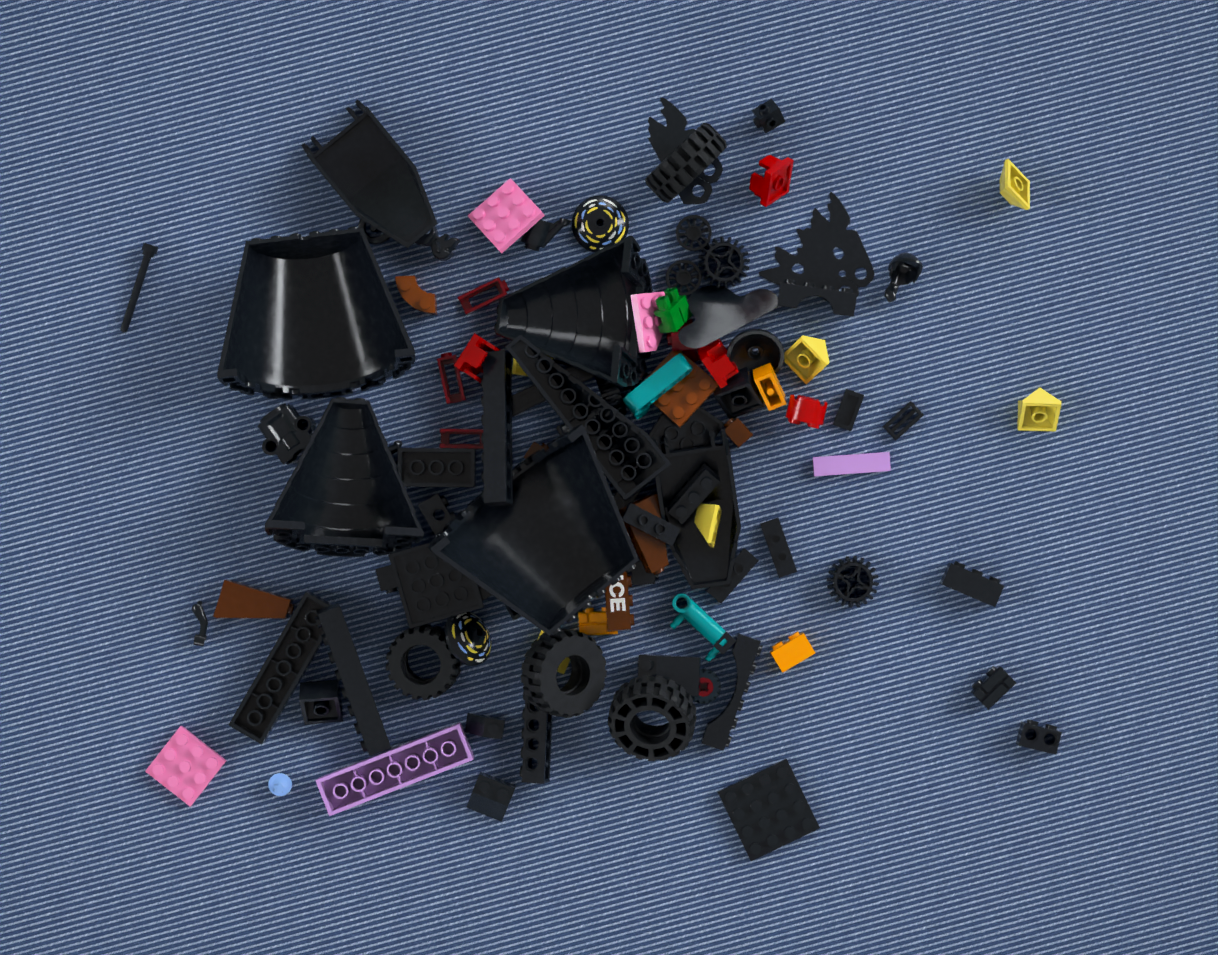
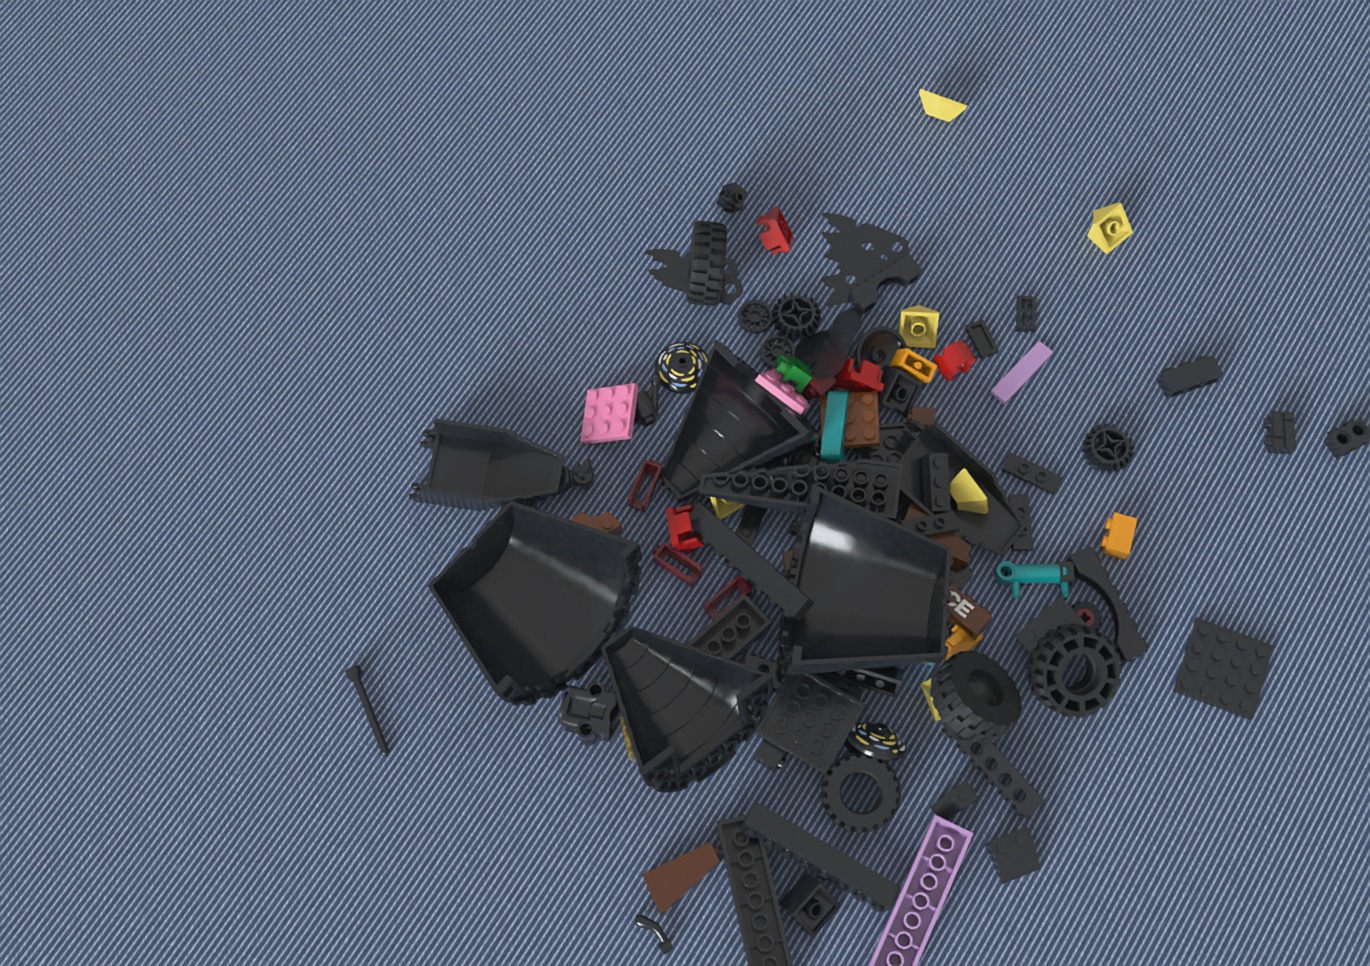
camera: 45 degrees left, 20 degrees down
(902, 270) = (924, 216): black piece -> none

